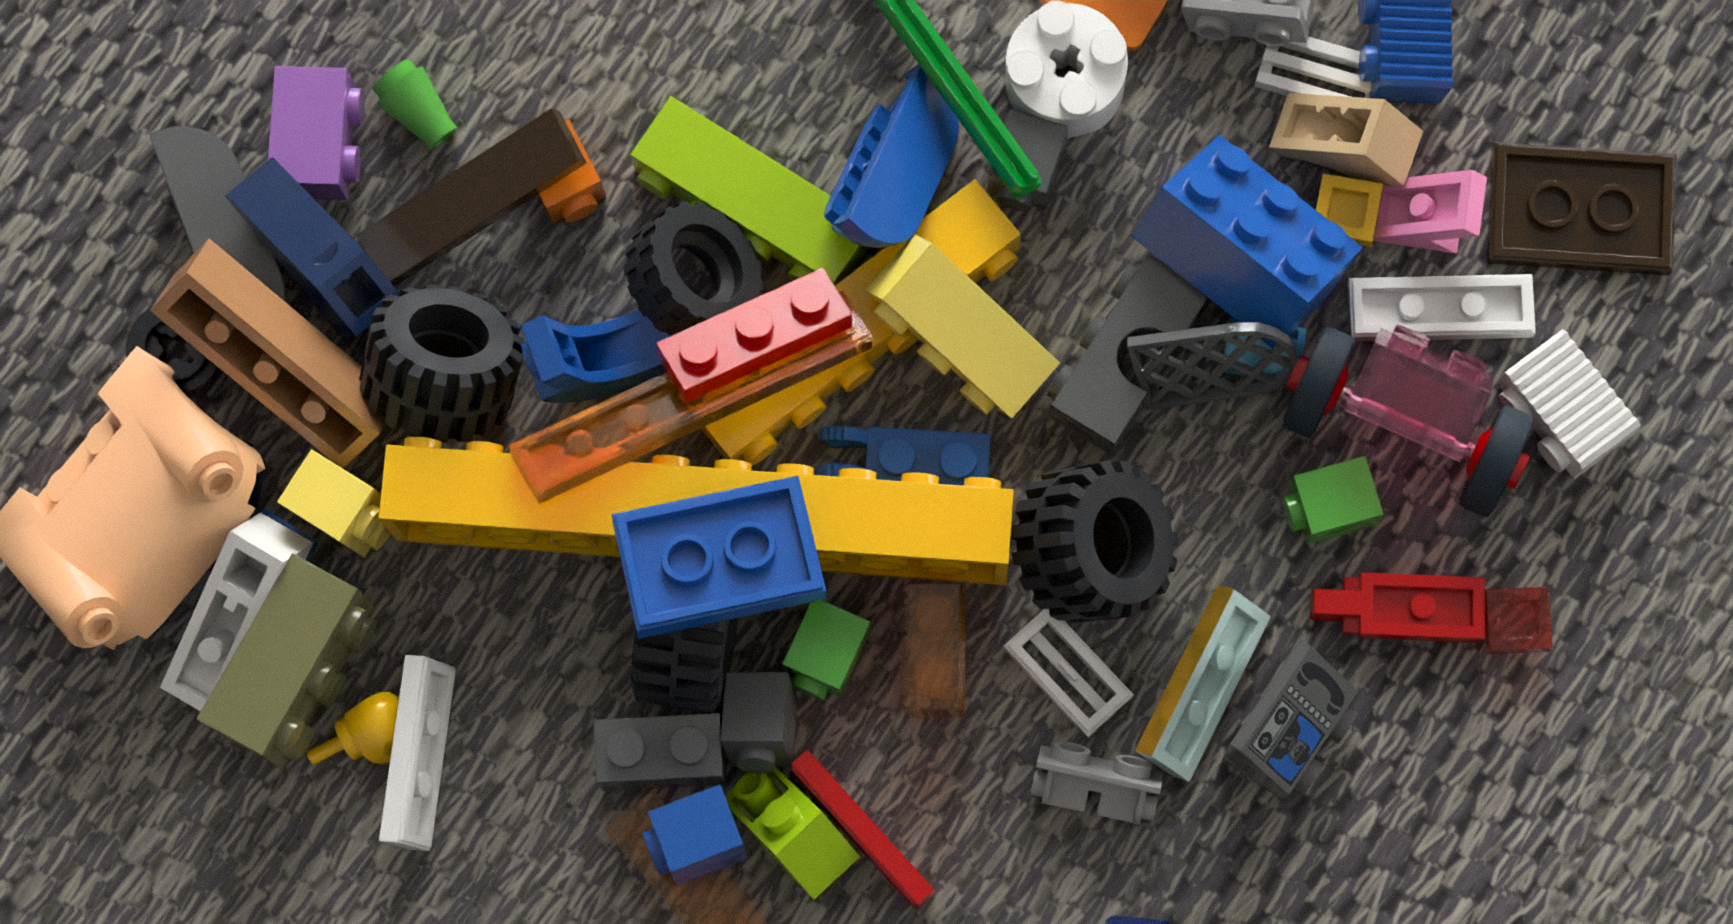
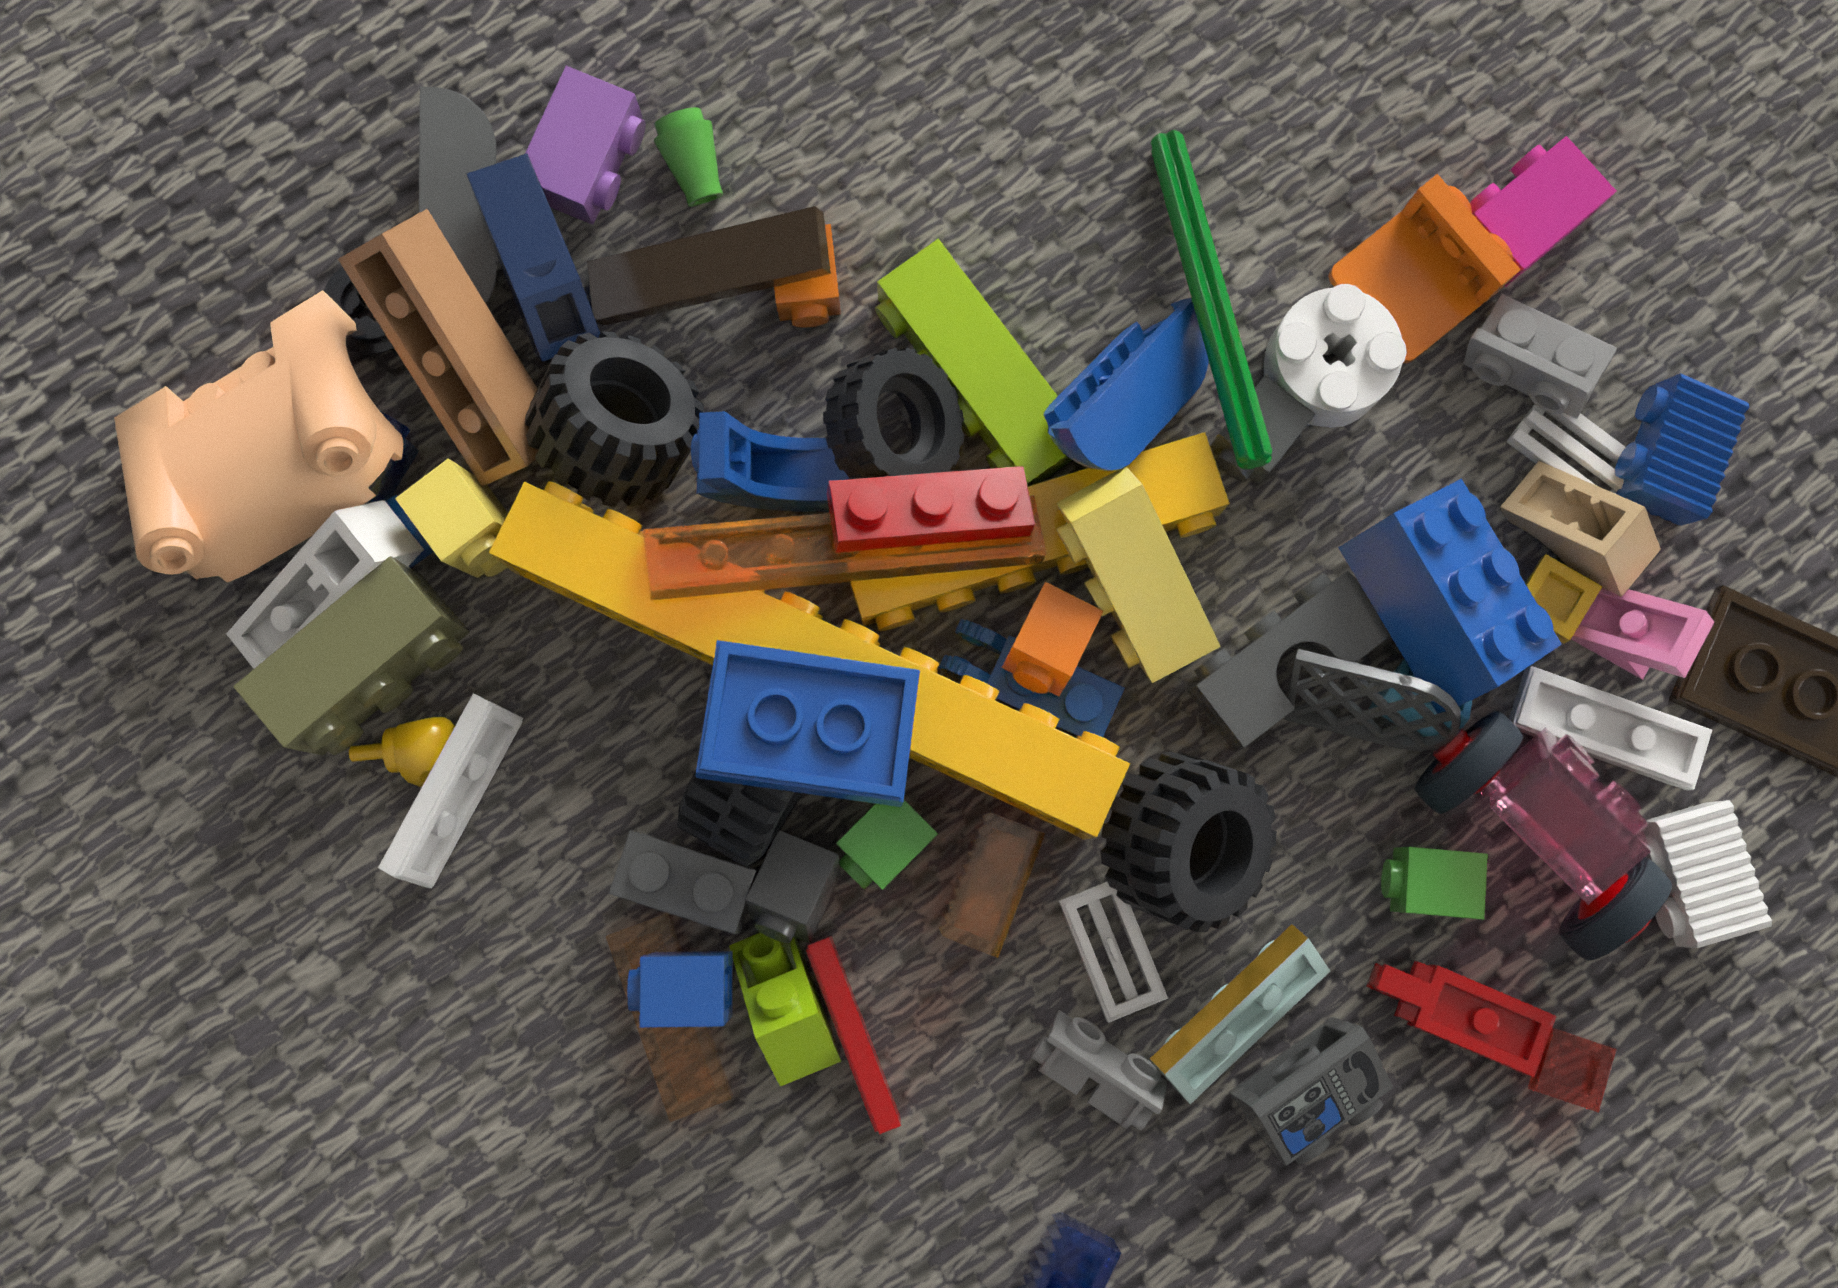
camera: 10 degrees right, 5 degrees up
(906, 413) = (1051, 641): none -> orange brick

